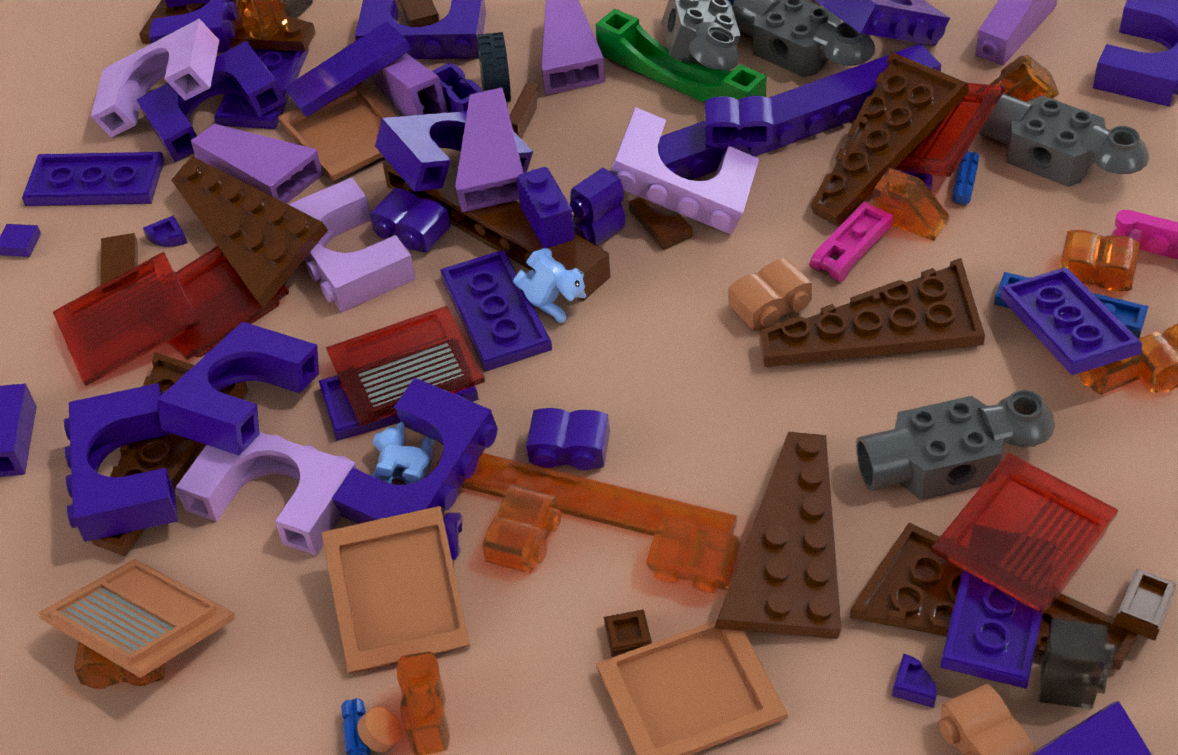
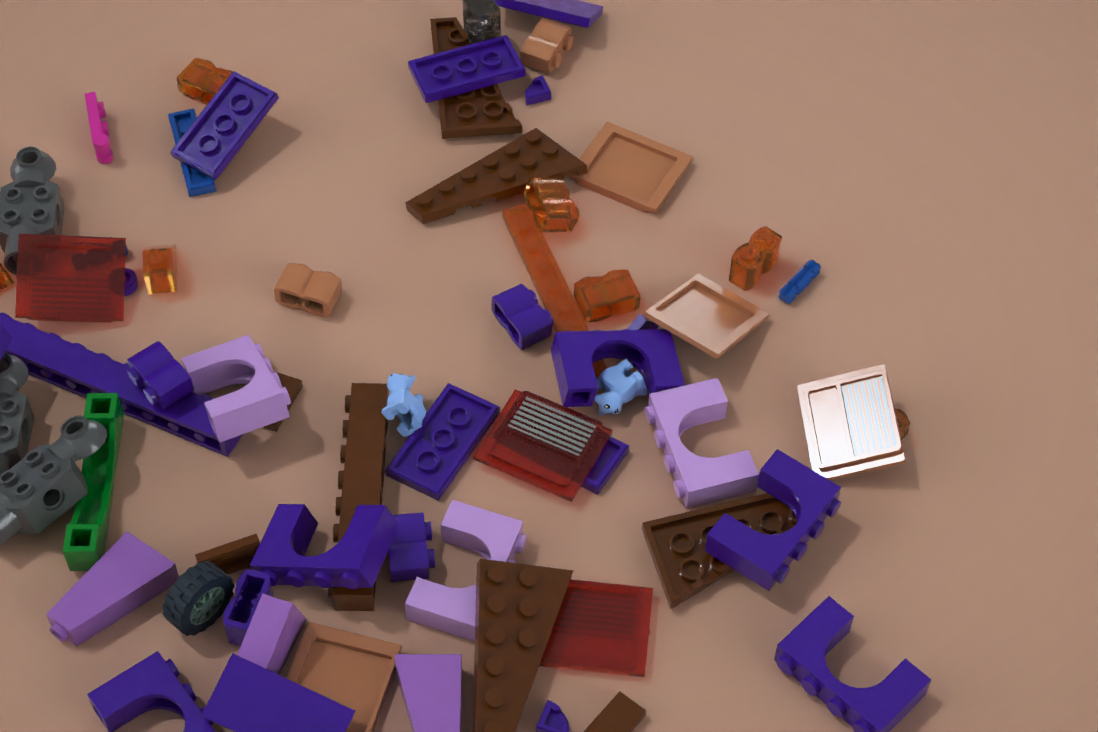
camera: 135 degrees left, 5 degrees up
(125, 318) = (660, 653): clear red piece -> none
(248, 353) = (631, 528): dark purple arch -> none
(379, 729) = (786, 270): nougat tile -> none
(488, 154) = (320, 499): medium lavender slope -> none
(545, 207) = (349, 428): dark purple brick -> none
(598, 207) = (312, 418): dark purple brick -> none
(627, 632) = (622, 214): reddish brown tile -> none
(851, 241) = (218, 278): dark pink plate -> none
(888, 128) = (84, 296): reddish brown wing -> none
(892, 319) = (278, 219): reddish brown wing -> none
(951, 443) = (368, 138): dark grey brick -> none
(1025, 532) = (416, 68): clear red piece -> none
(1101, 260) = (144, 148): clear orange brick -> none
(1145, 604) = (410, 25): tile -> none

